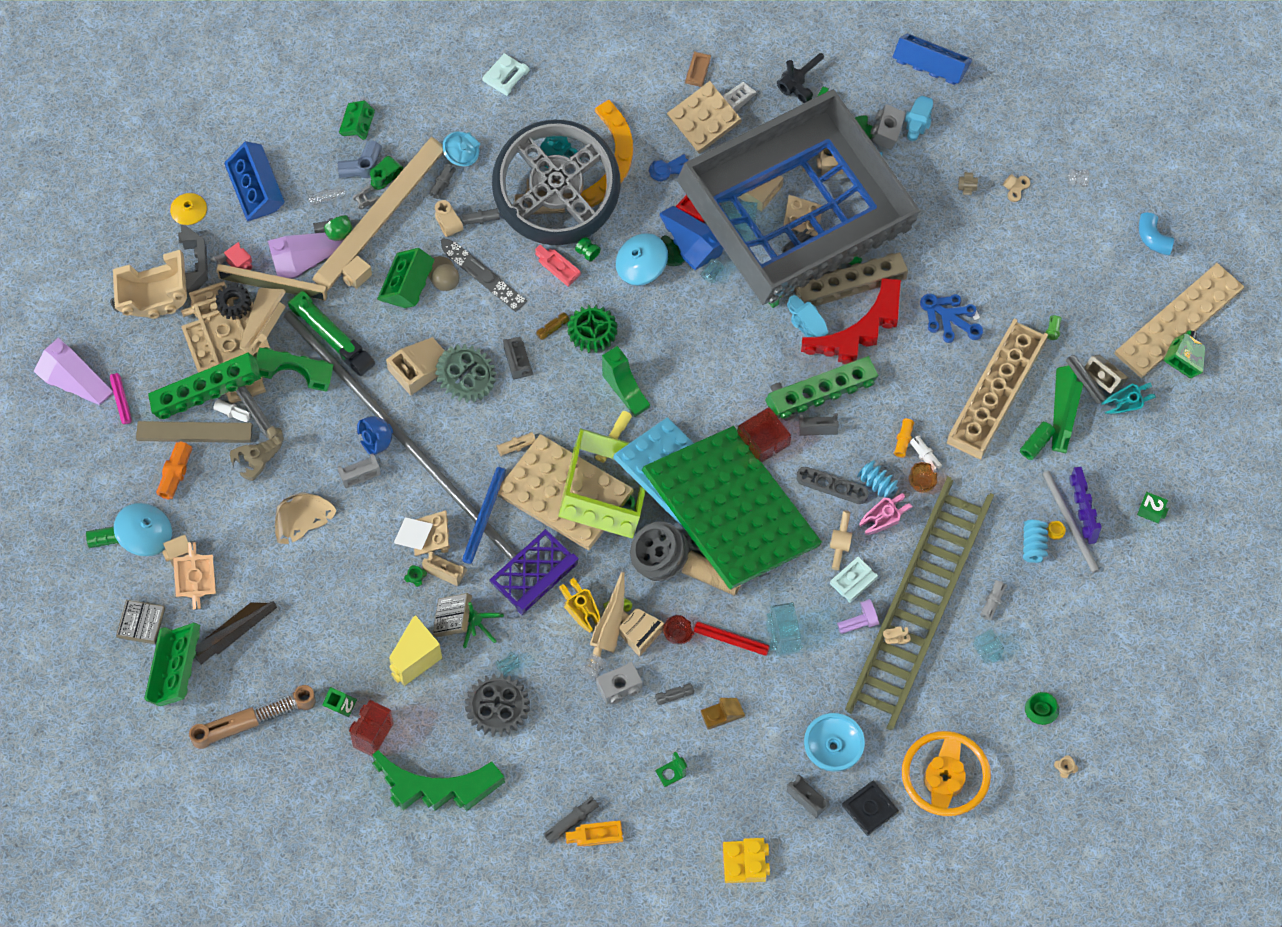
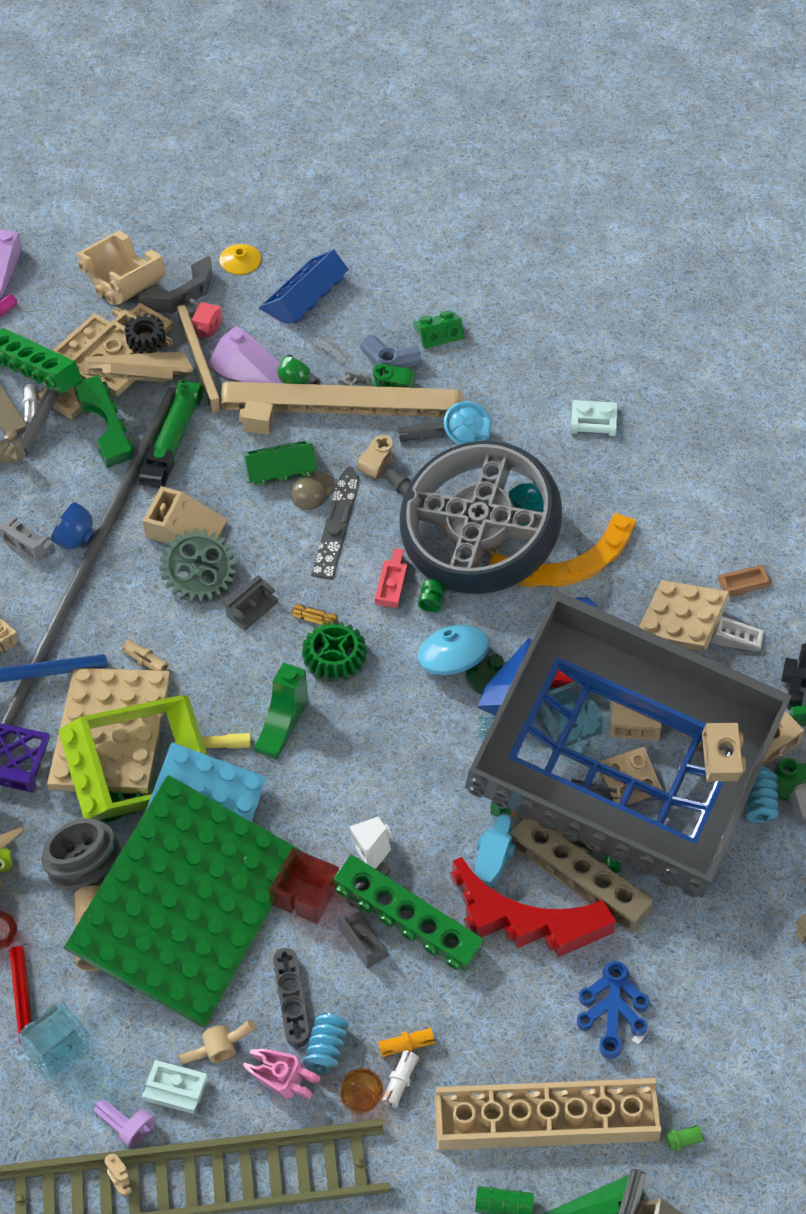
camera: 60 degrees right, 10 degrees down
(755, 382) = (371, 841): none -> white slope
(841, 147) = (717, 766): none -> tan brick

